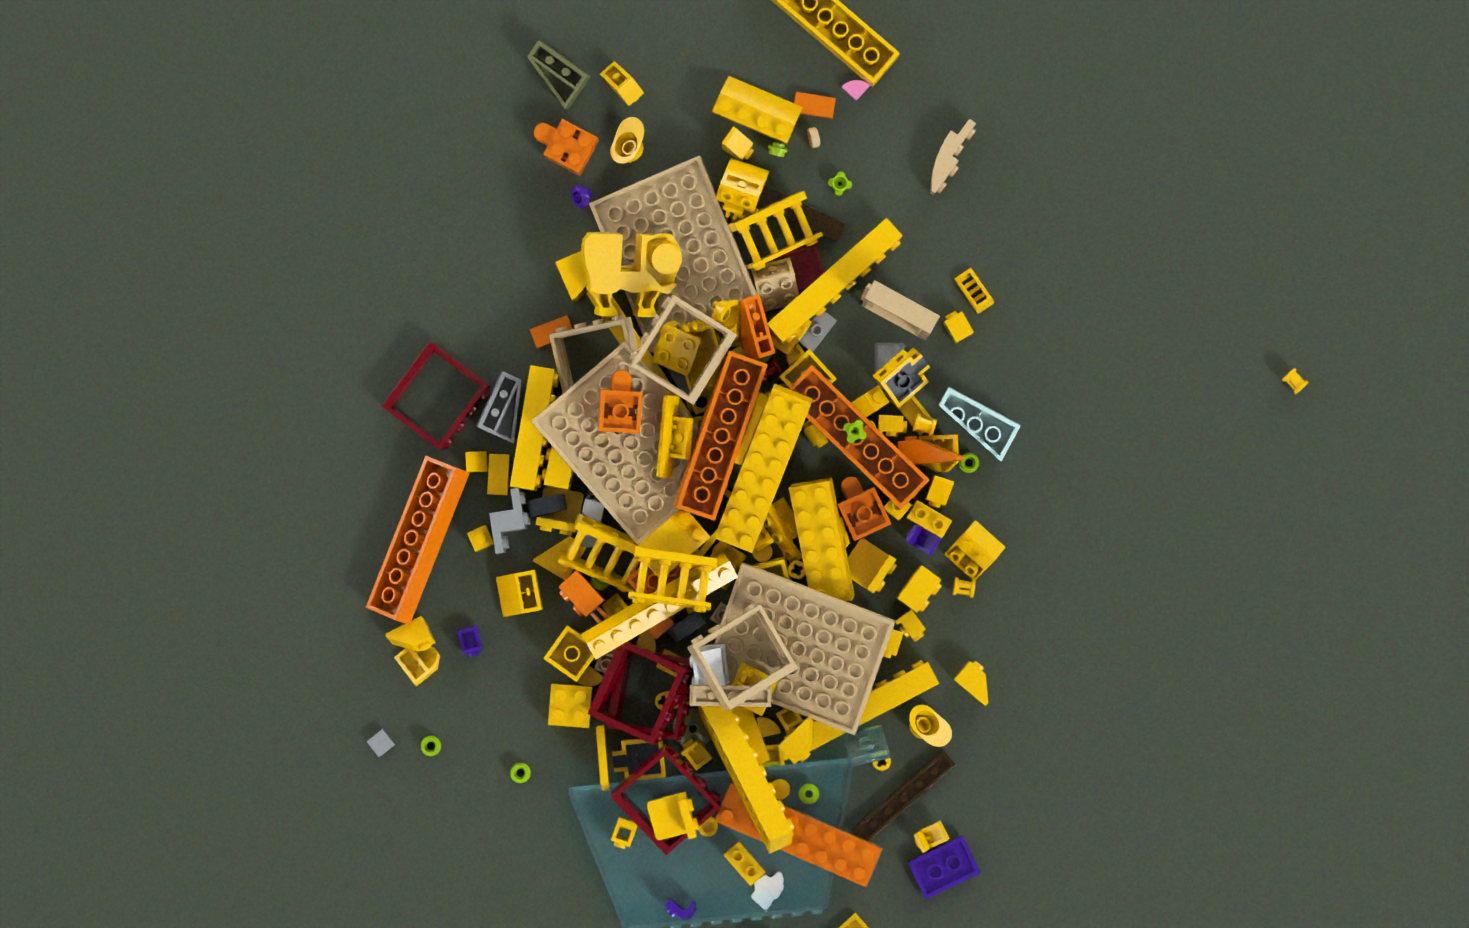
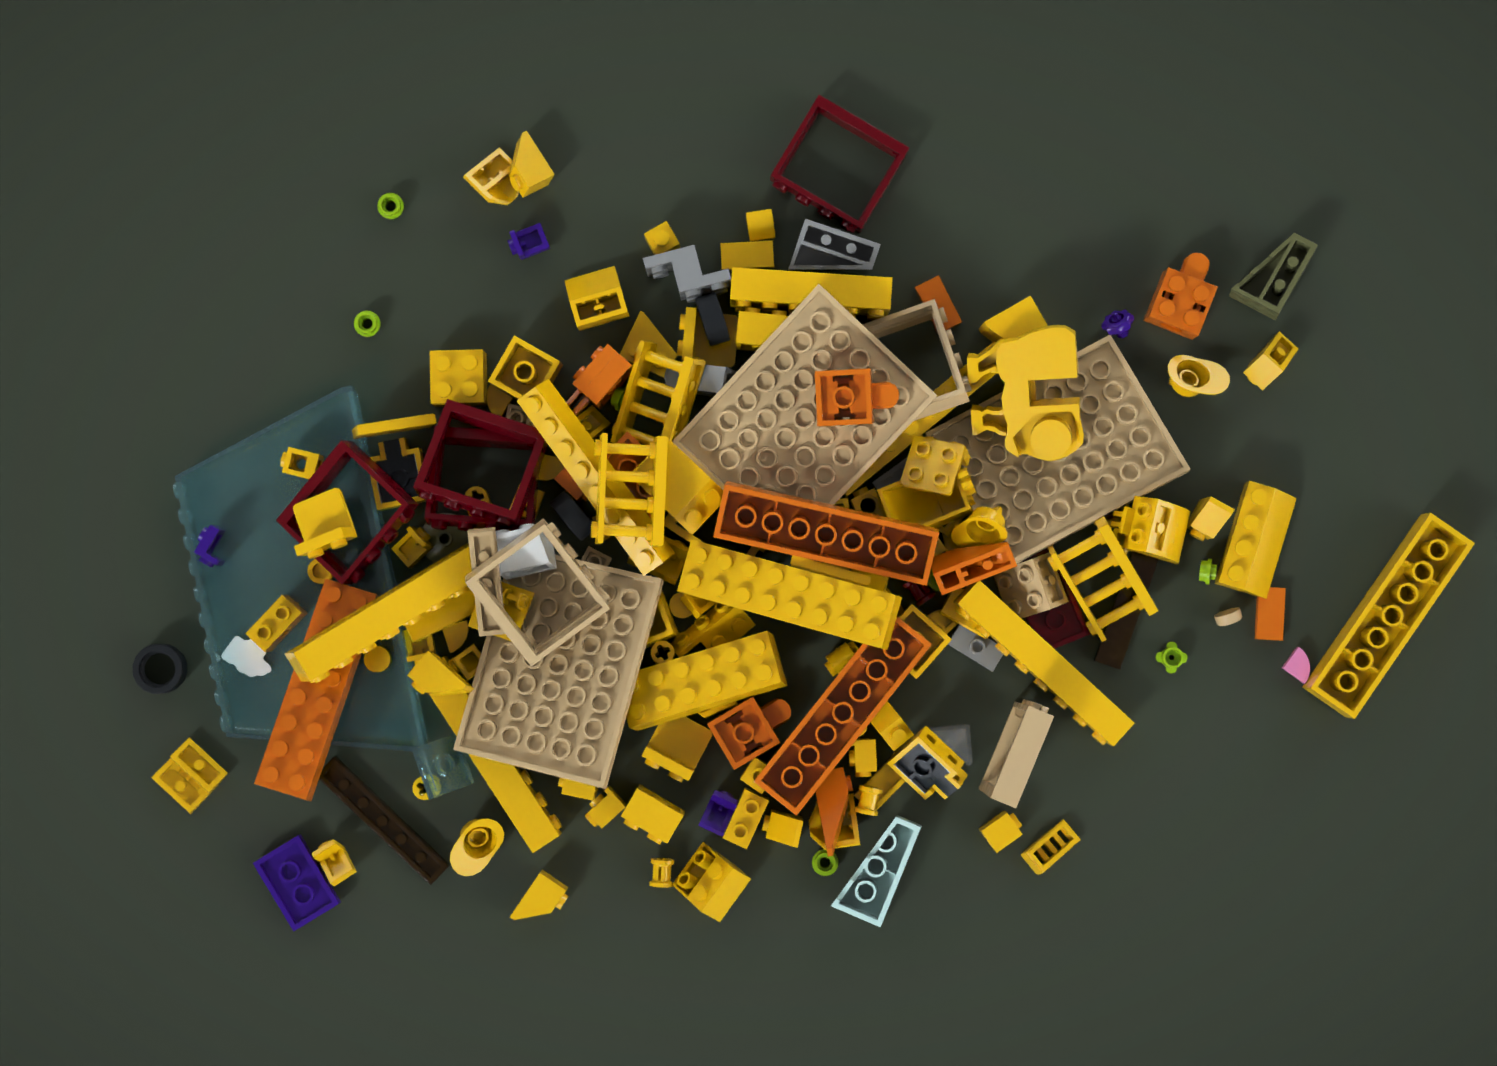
camera: 85 degrees right, 0 degrees up
(381, 743) = (388, 142): light grey tile -> none
(417, 540) = (650, 158): orange brick -> none
(674, 437) = (817, 472): yellow bracket -> none
(712, 364) = (912, 510): tan window -> none
(804, 788) = (382, 693): lime plate -> none
(854, 436) = (842, 707): lime plate -> none
(945, 162) = (1216, 792): tan slope -> none

